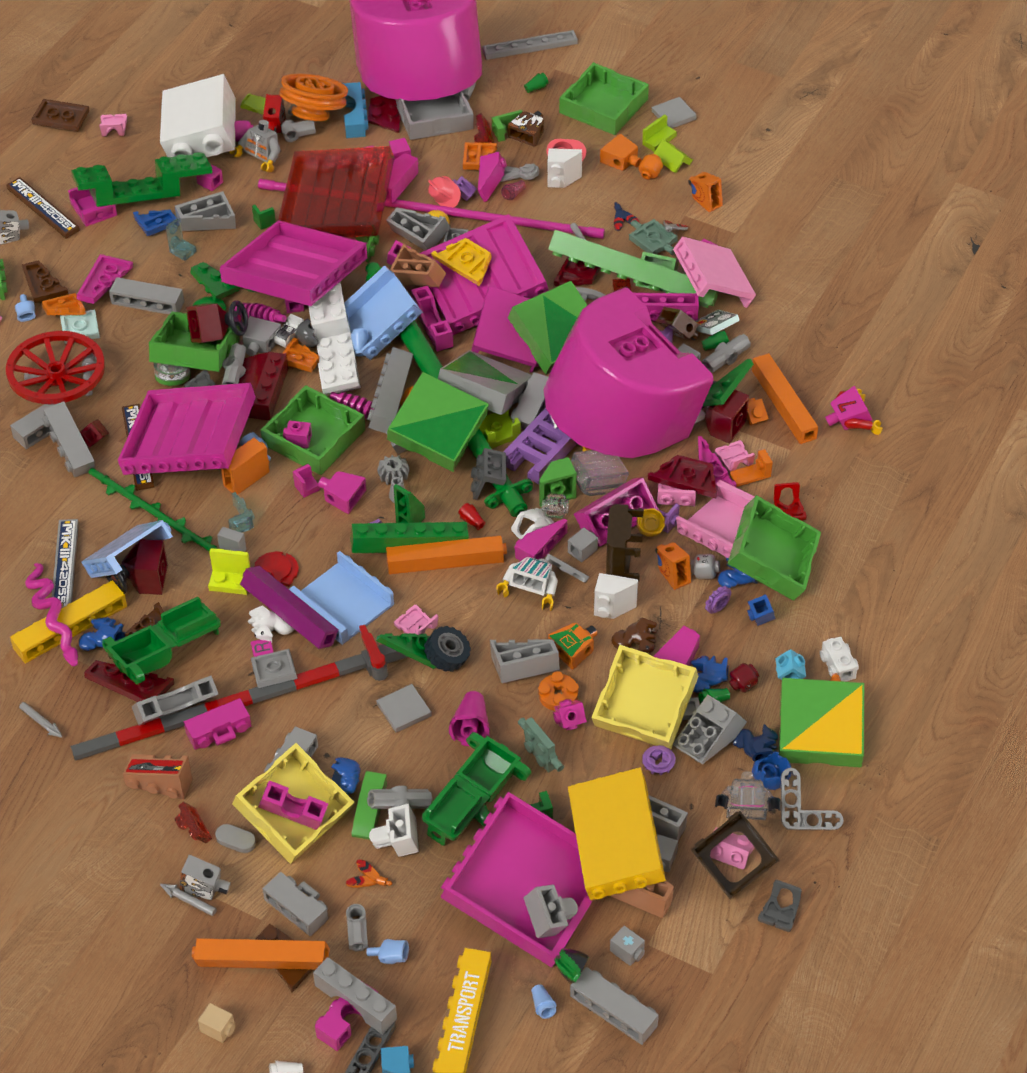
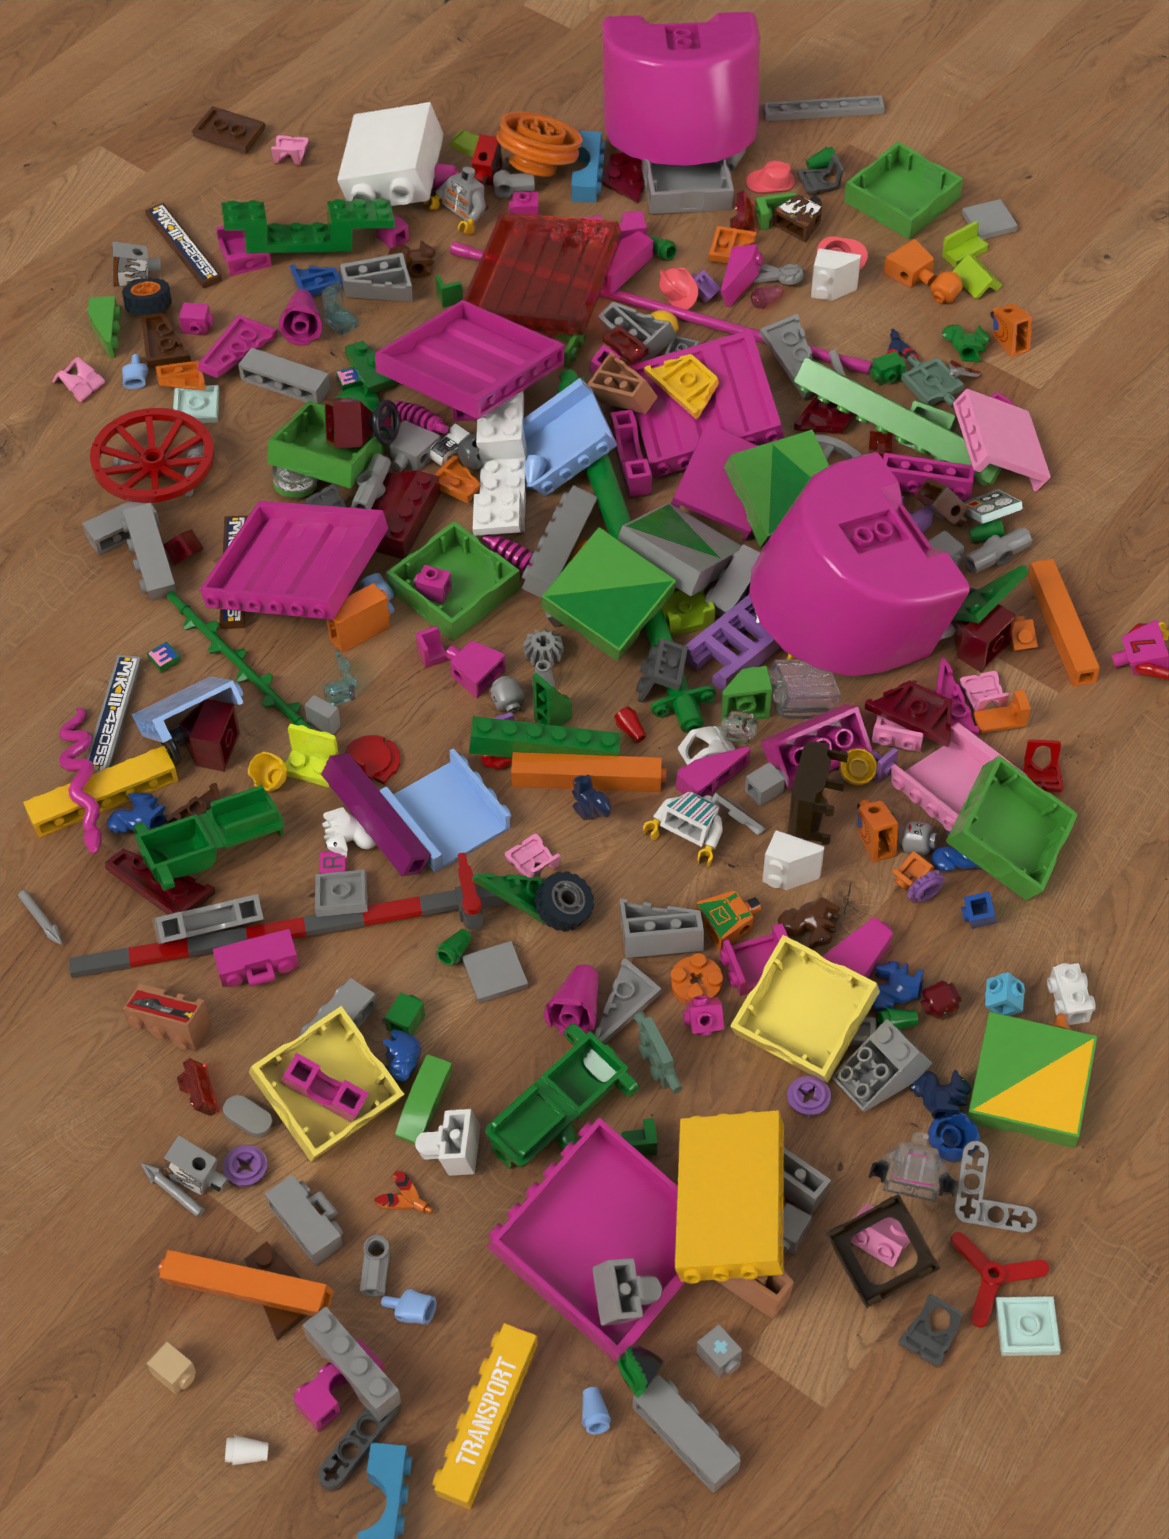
camera: 10 degrees right, 5 degrees up
(23, 249) = (146, 296): none -> black wheel
(66, 261) = (196, 318): none -> dark pink brick
(95, 517) = (163, 657): none -> tile
(151, 251) = (300, 319): none -> dark pink cone
(197, 291) = (348, 378): none -> tile
(197, 585) = (268, 771): none -> yellow hair
(234, 195) = (417, 259): none -> reddish brown animal
(239, 866) = (245, 1154): none -> medium lavender gear
(310, 142) = (524, 203): none -> dark pink brick
(341, 746) = (405, 1014): none -> green brick
(367, 697) = (452, 949): none -> green cone
(372, 507) = (507, 694): none -> light grey head
(373, 557) = (495, 762): none -> red arm
(399, 796) = (462, 1096): light grey piece -> none
(412, 238) = (625, 344): none -> clear red hinge
(426, 164) = (664, 248): none -> green cone
(452, 575) = (590, 802): none -> dark blue animal
(500, 101) = (773, 177): none -> coral piece
(509, 709) = (629, 996): none -> light grey wing
(533, 100) = (813, 179): none -> dark grey piece
(538, 224) = (788, 345): none -> light grey wing
(596, 670) = (749, 958): none -> dark pink panel
(617, 232) = (887, 368): none -> green brick
(673, 206) = (967, 343): none -> green animal
(704, 590) = (911, 870): none -> orange bracket
(817, 870) = (989, 1286): none -> red piece
(849, 893) = (1027, 1326): none -> light aqua tile

